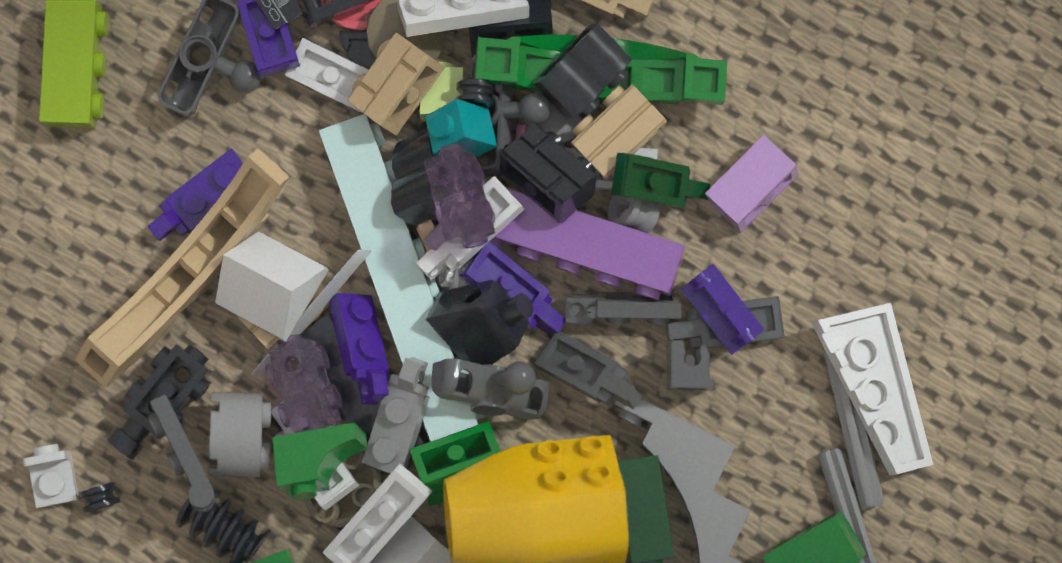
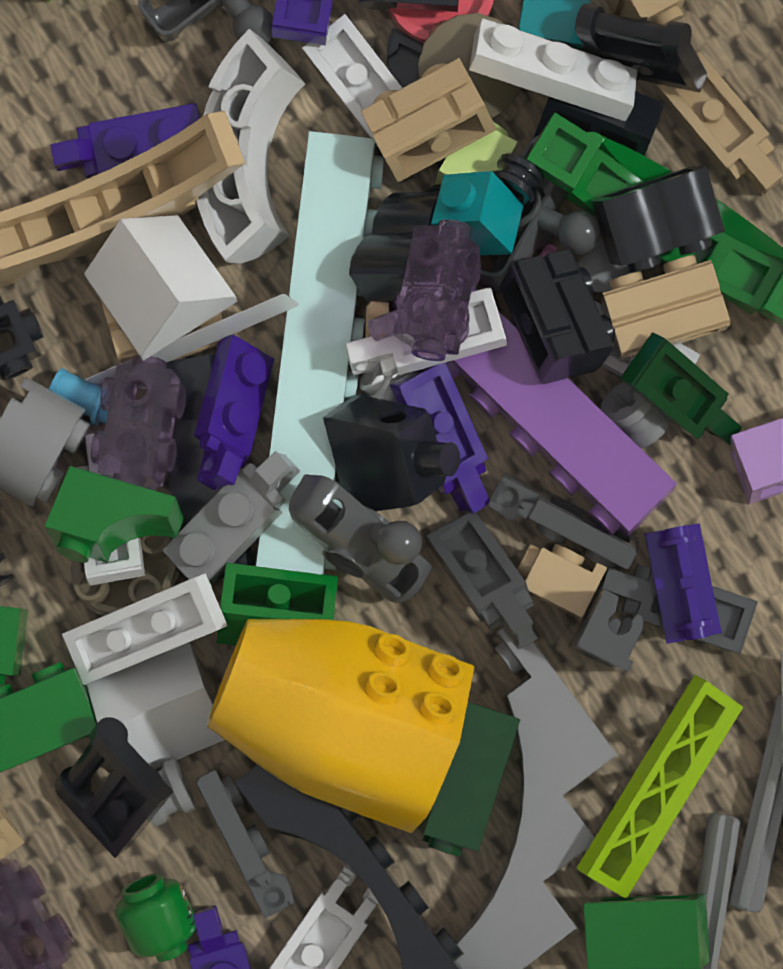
camera: 20 degrees right, 0 degrees up
(253, 384) = (82, 393): none -> medium azure pin
(267, 124) = (254, 92): none -> white brick
(638, 347) = (560, 579): none -> tan brick
(774, 453) = (660, 787): none -> lime fence

